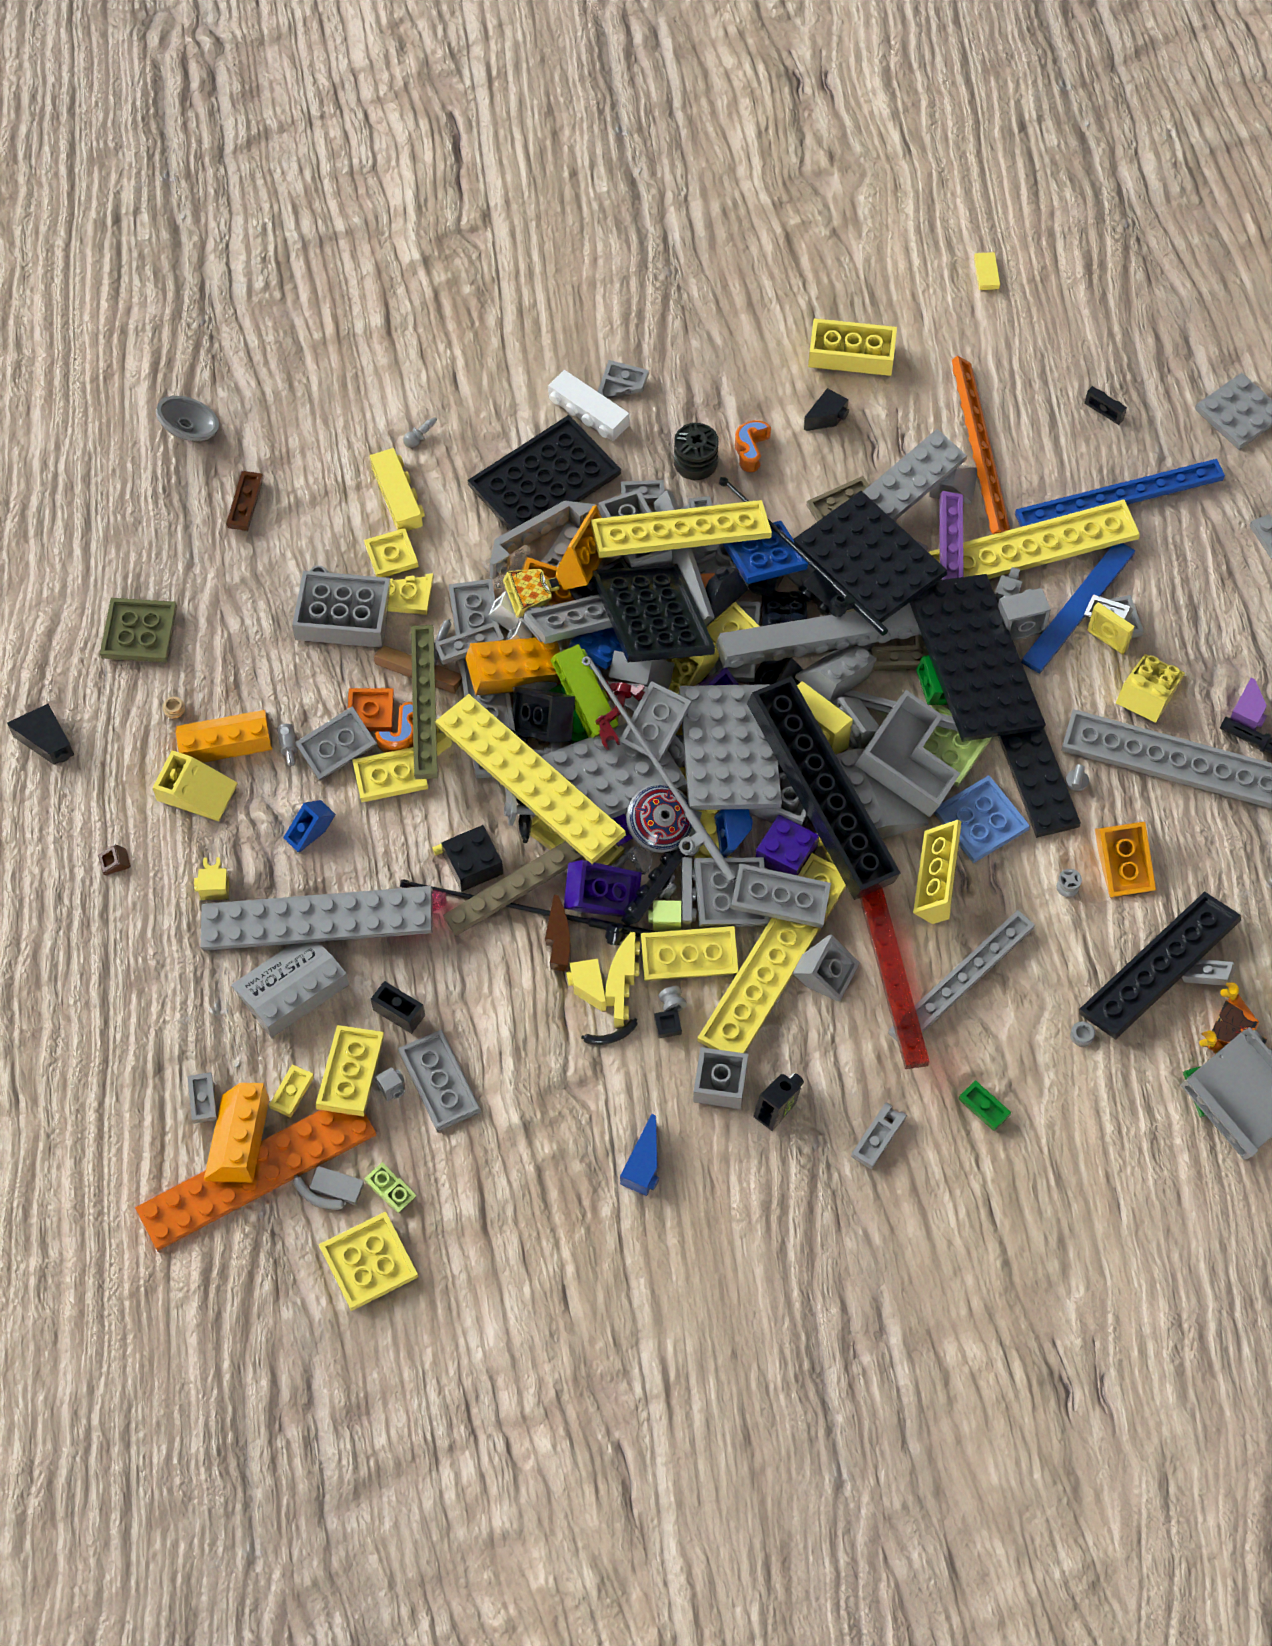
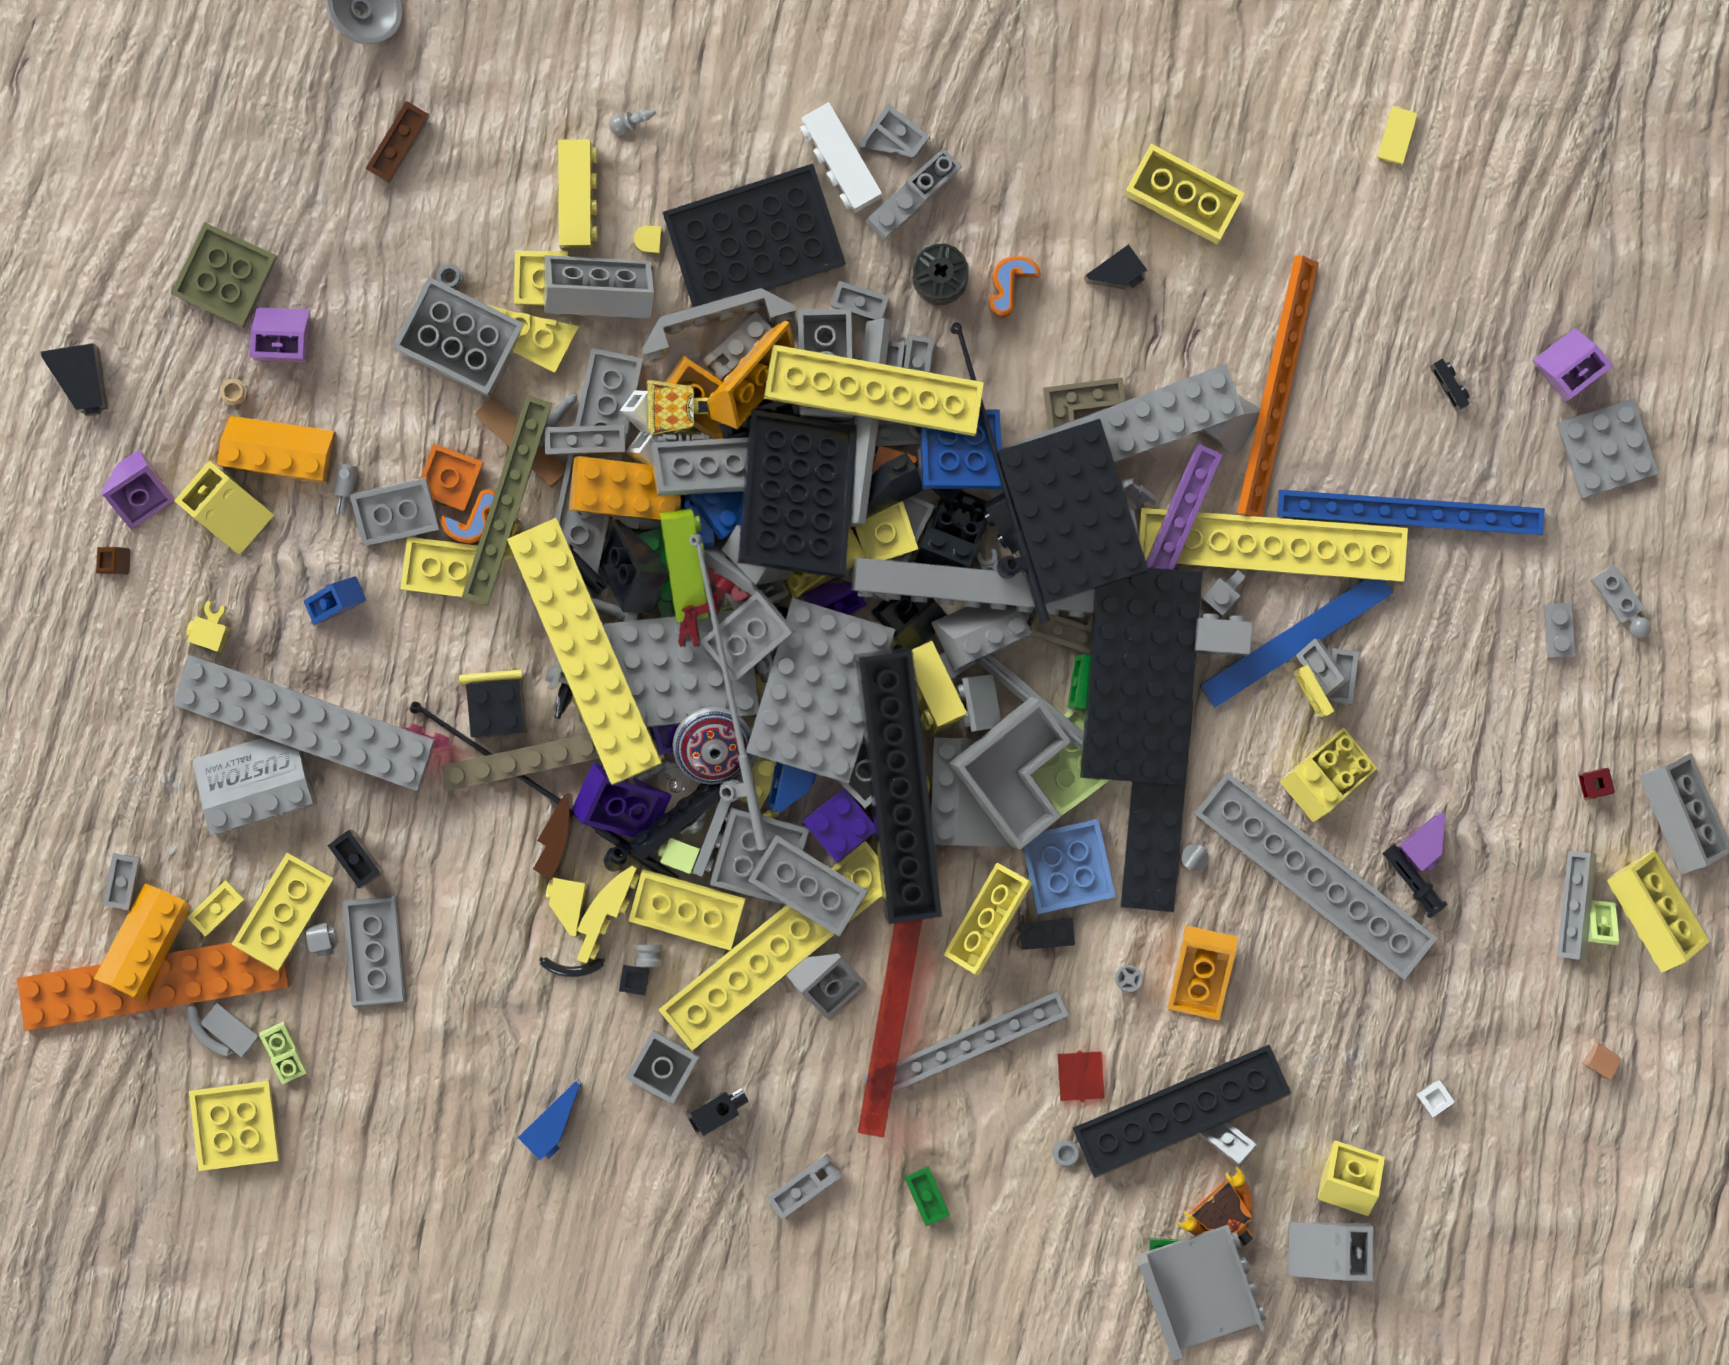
camera: 25 degrees right, 25 degrees up
(119, 798) = (136, 490): none -> medium lavender slope
(199, 656) = (280, 335): none -> medium lavender slope
(438, 542) = (598, 287): none -> light grey slope
(463, 504) = (648, 239): none -> light yellow tile
(653, 411) = (913, 194): none -> light grey slope
(988, 875) = (1047, 934): none -> black plate
(1066, 972) = (1080, 1076): none -> clear red piece
(1188, 363) = (1572, 364): none -> medium lavender slope

